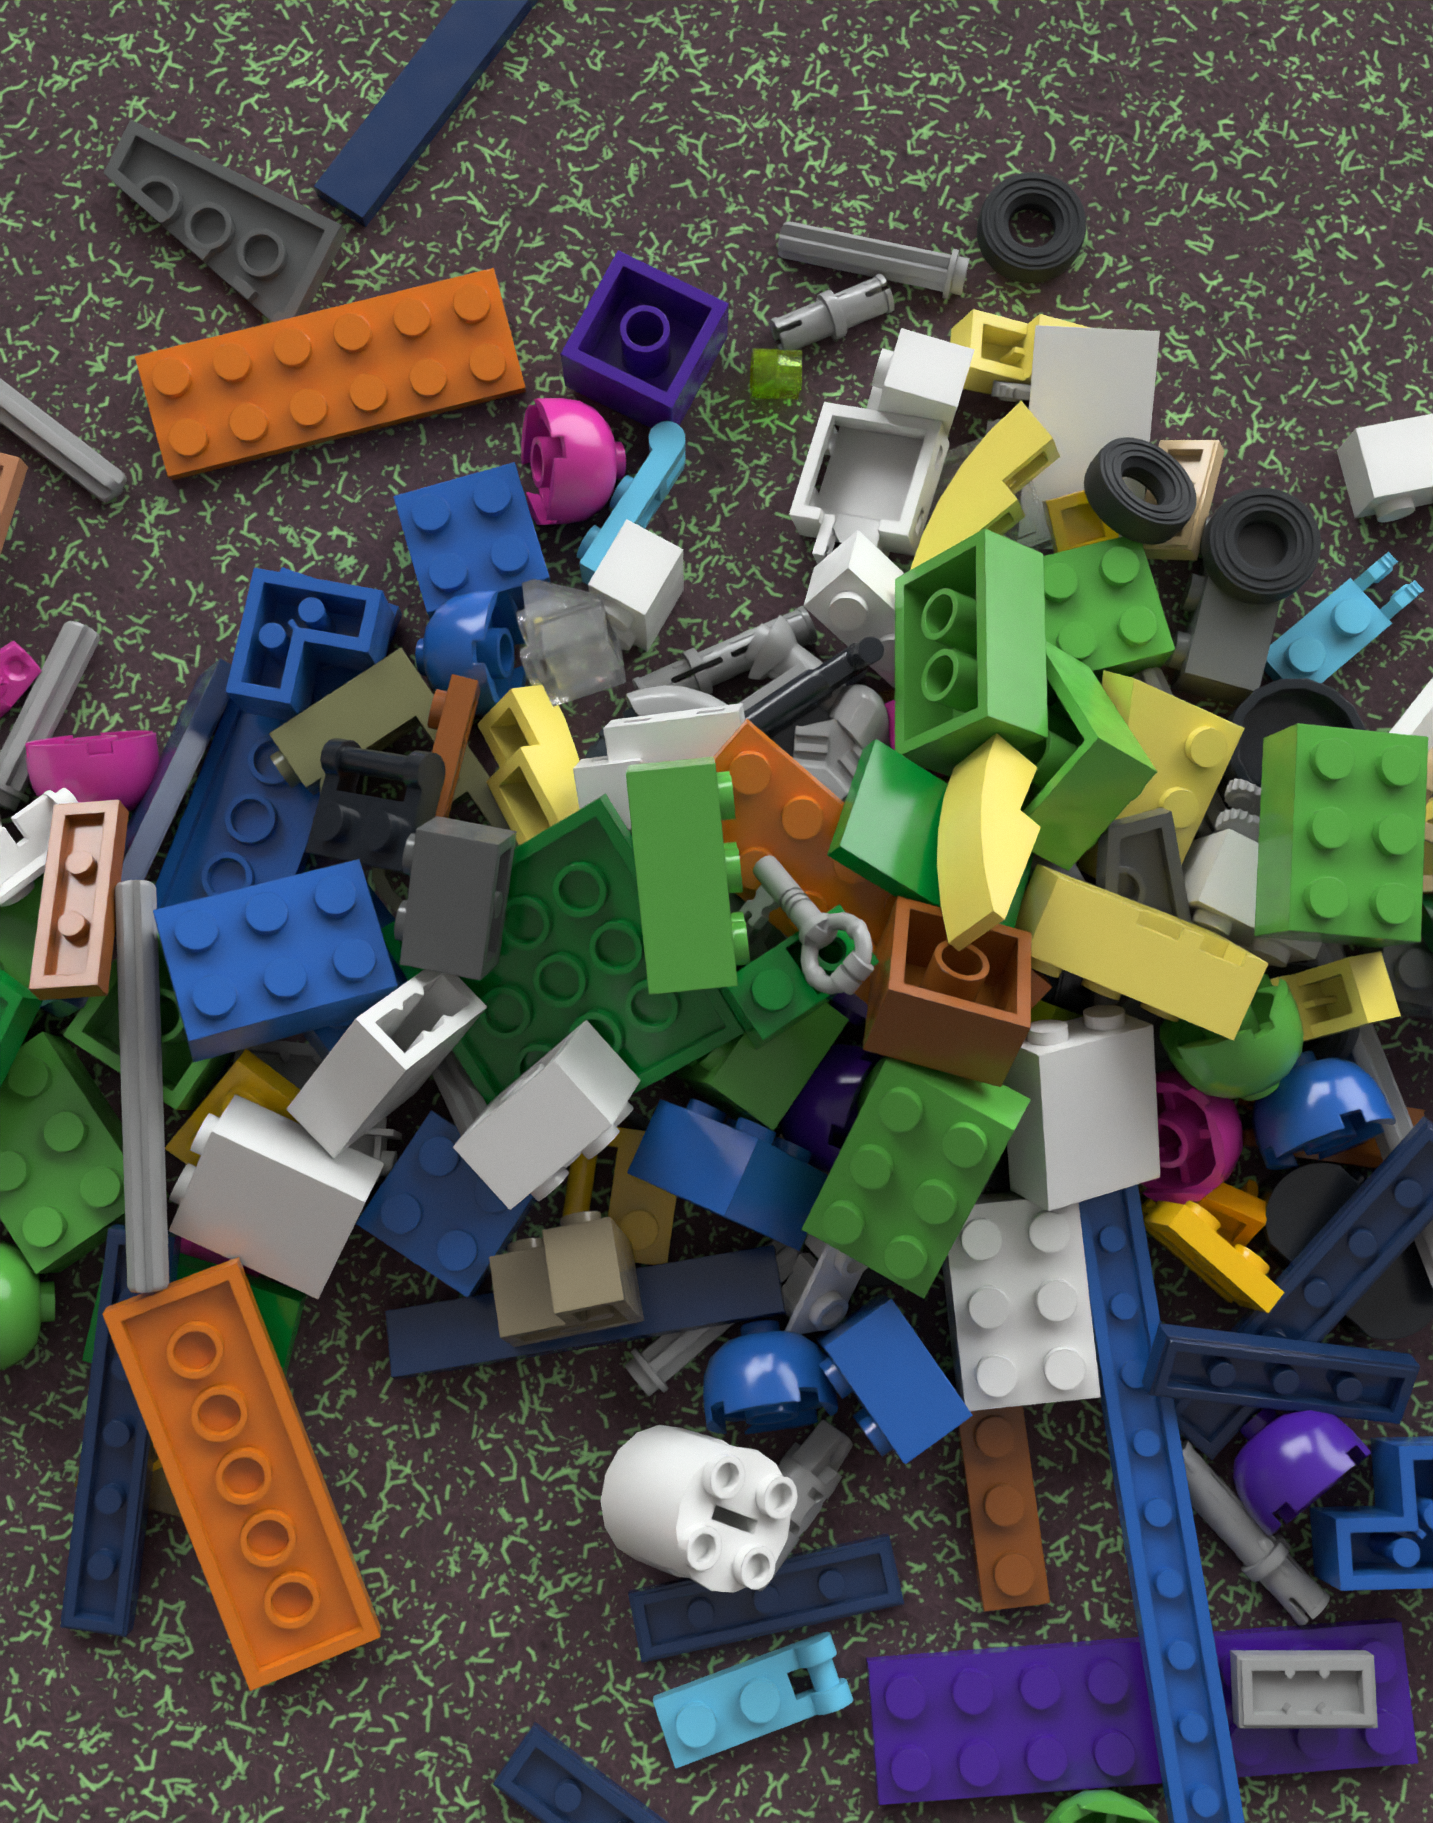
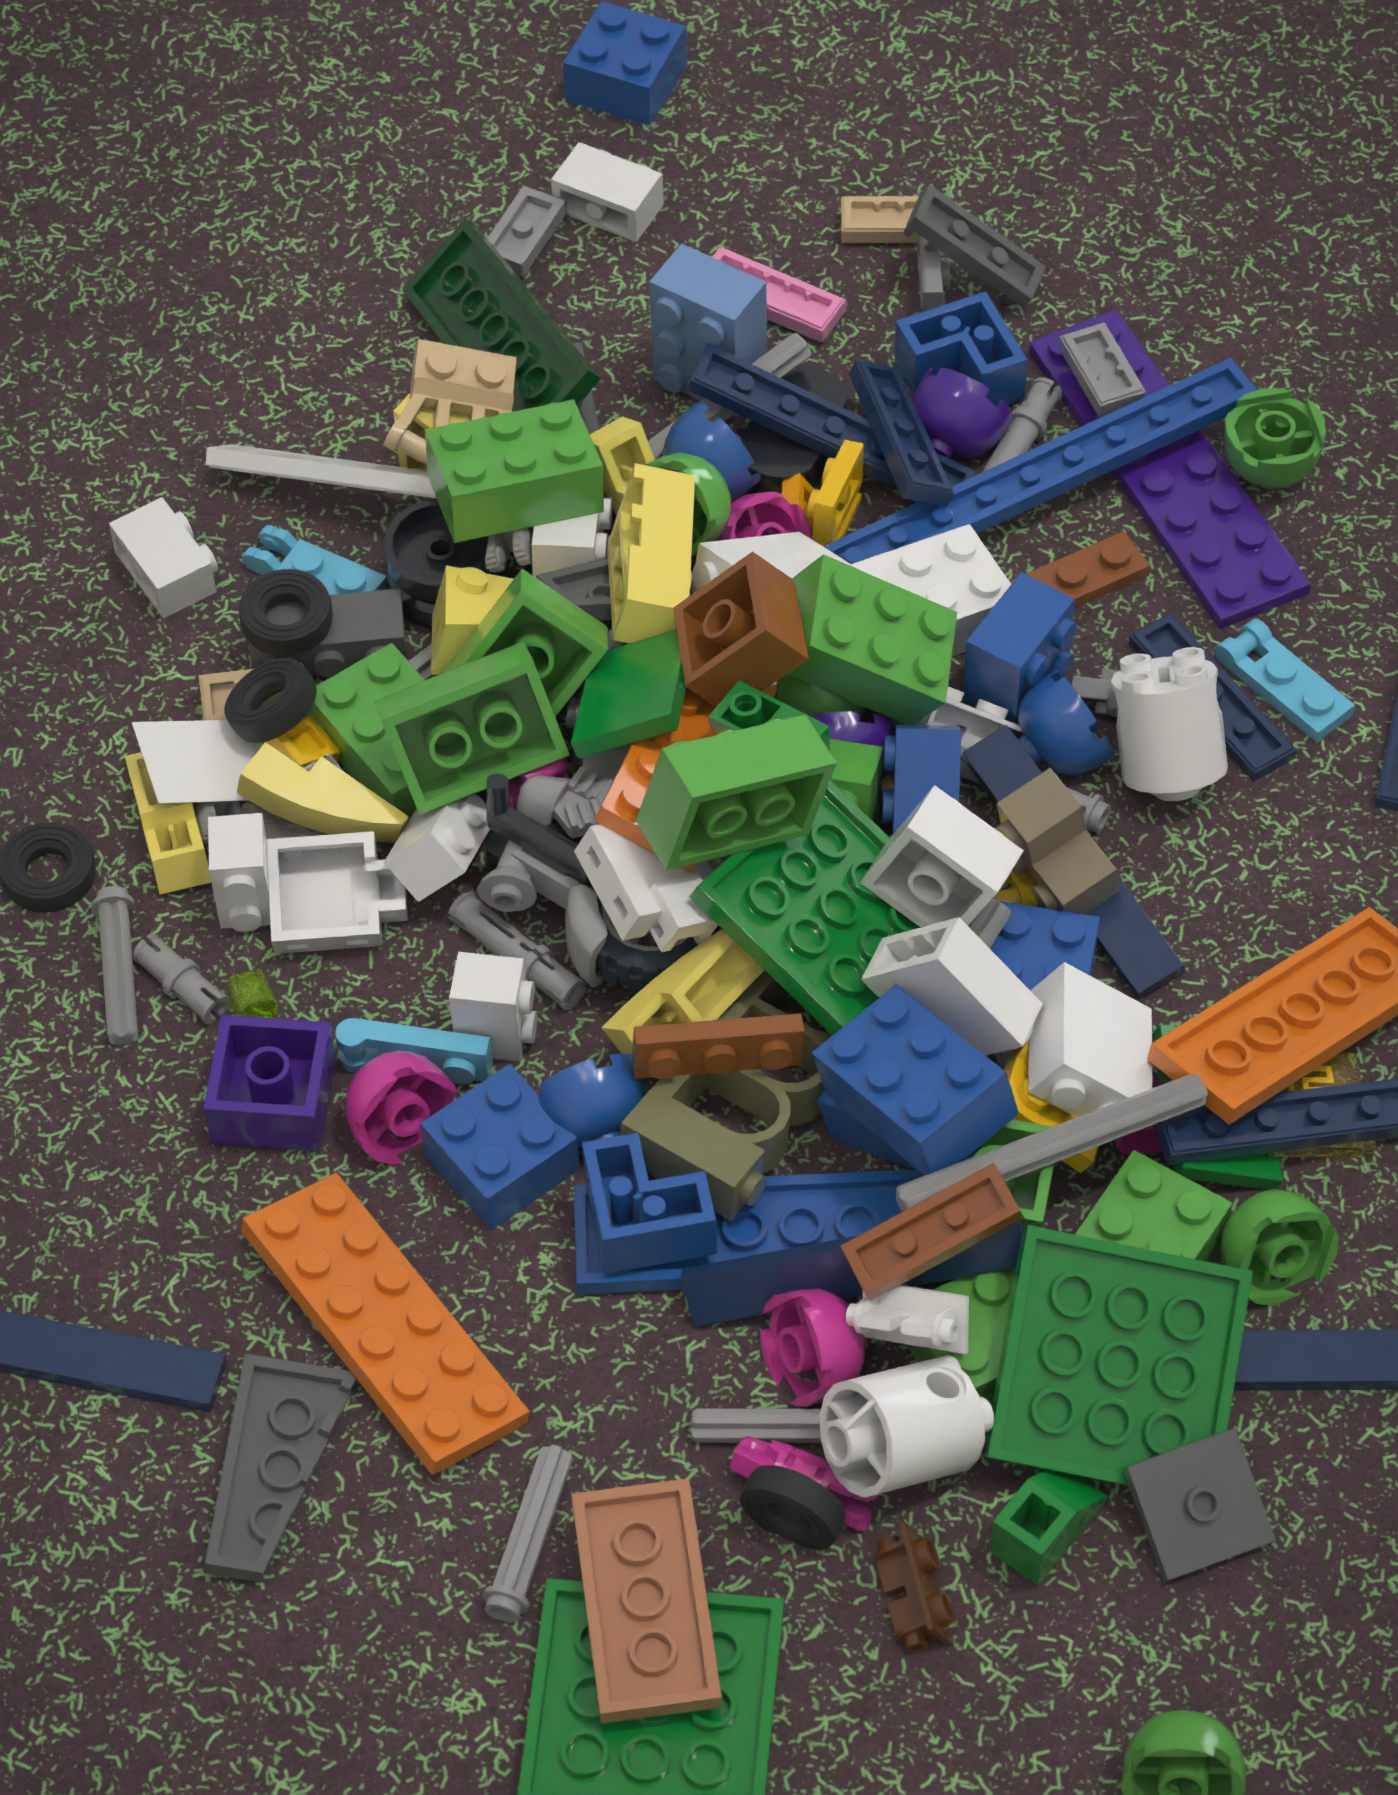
camera: 105 degrees left, 25 degrees down
(366, 826) = (781, 1069): black plate -> none
(455, 897) = (812, 961): dark grey brick -> none
(568, 642) = (560, 1014): clear slope -> none
(814, 928) = (737, 707): light grey piece -> none
(983, 839) = (622, 645): light yellow slope -> none

